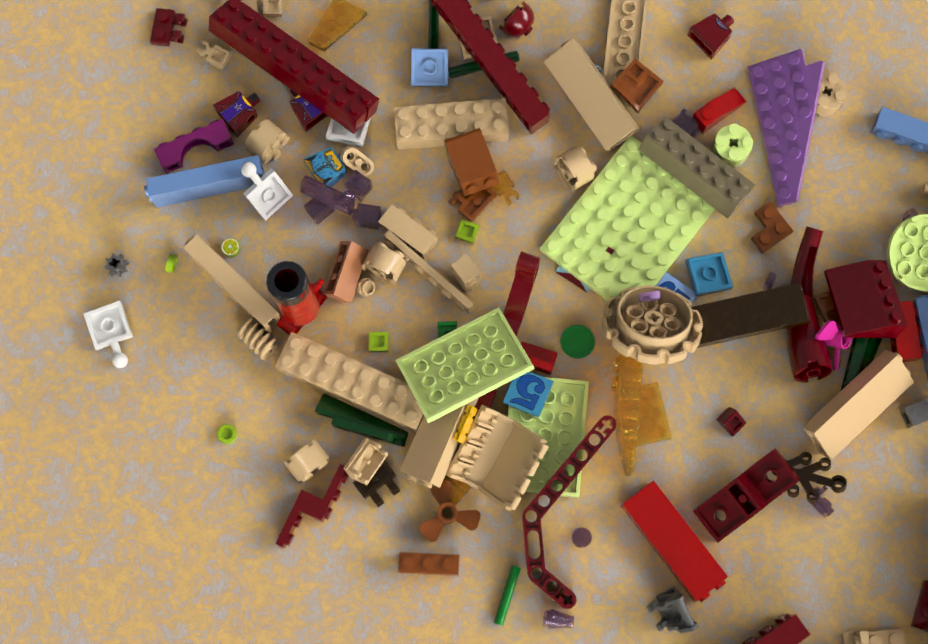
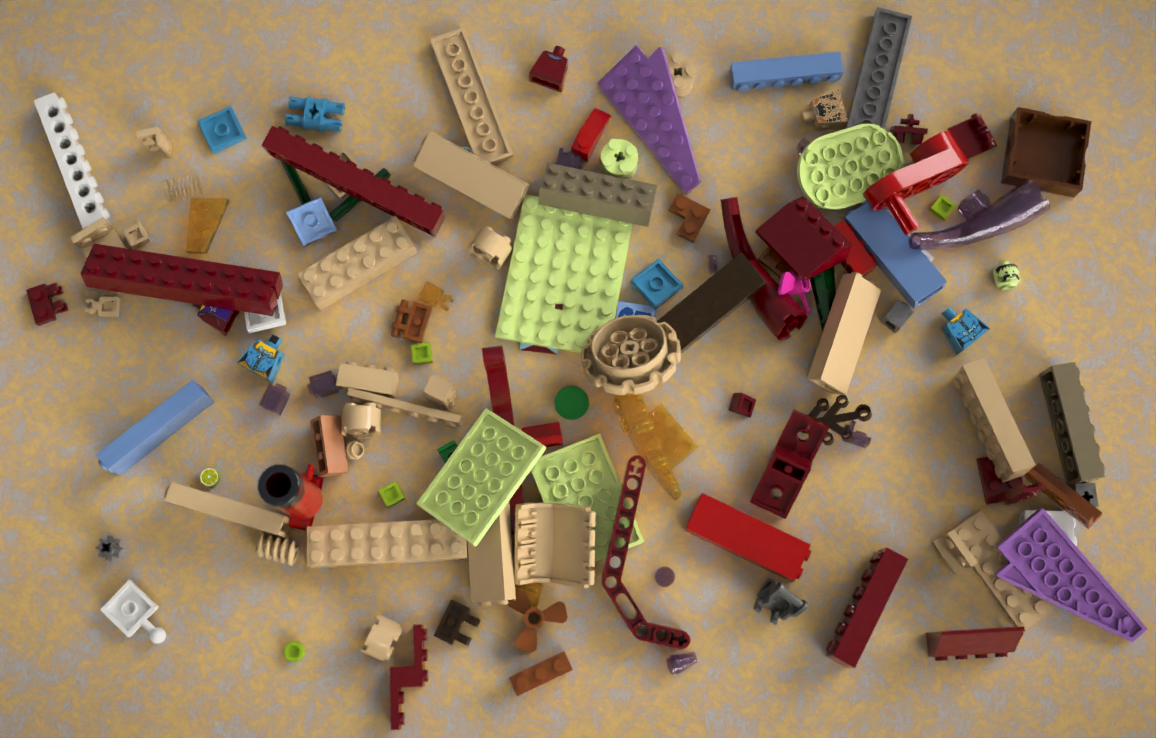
camera: 30 degrees left, 0 degrees up
(171, 263) = (160, 518): lime tile -> none
(172, 153) = (110, 417): magenta arch -> none
(238, 111) = (152, 348): torso -> none
(266, 141) = (194, 363): tan brick -> none
(267, 192) = (218, 409): white plate -> none
(342, 201) = (277, 383): clear purple hinge -> none
(356, 159) = (287, 339): tan plate -> none
(359, 184) = (300, 361): brick -> none
(359, 422) = (408, 577): dark green wedge -> none
(365, 461) = (435, 610): tan hinge -> none
(465, 424) = (509, 529): yellow axle -> none
(471, 162) = (394, 288): dark orange slope -> none
(507, 595) = (625, 664): green piece -> none
(518, 21) = (372, 141): dark red cylinder -> none
(528, 393) = (552, 472): tile -> none
(636, 85) = (507, 146): dark orange plate -> none
(649, 296) = (616, 330): lavender tile -> none

